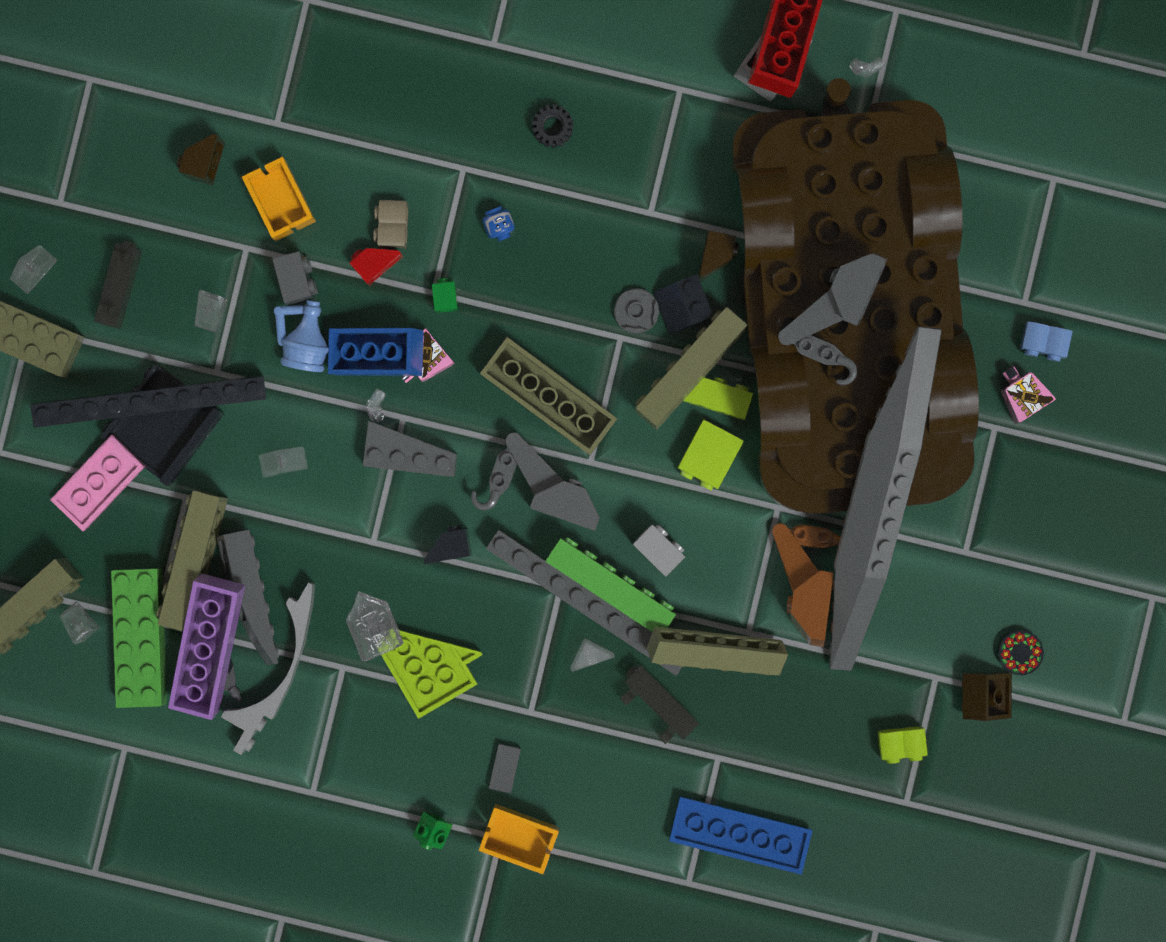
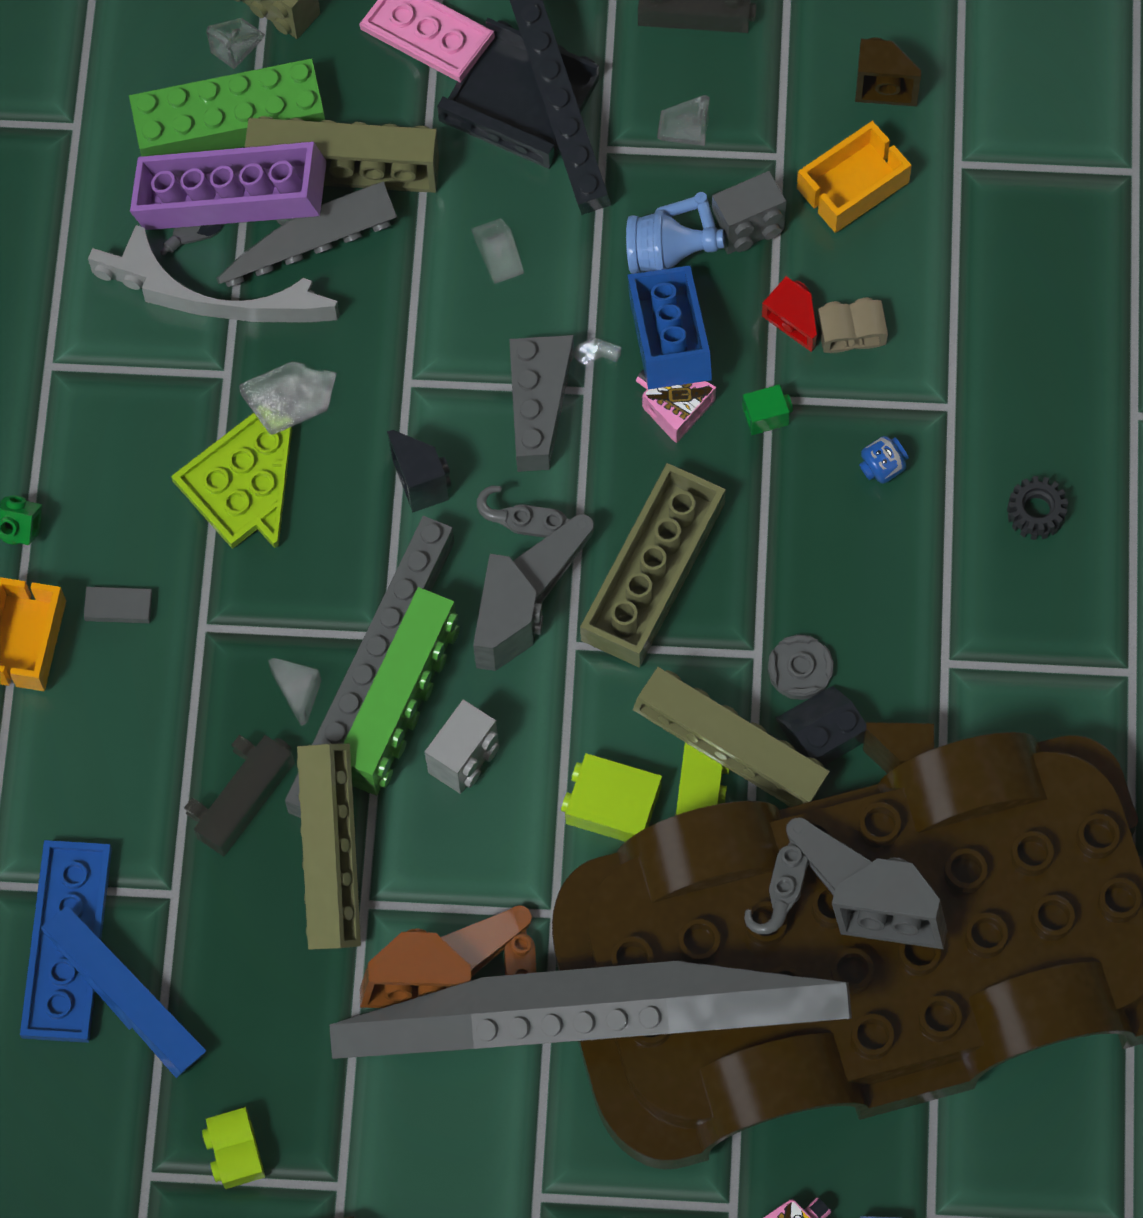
camera: 85 degrees right, 20 degrees down
(786, 802) = (123, 992): none -> blue slope

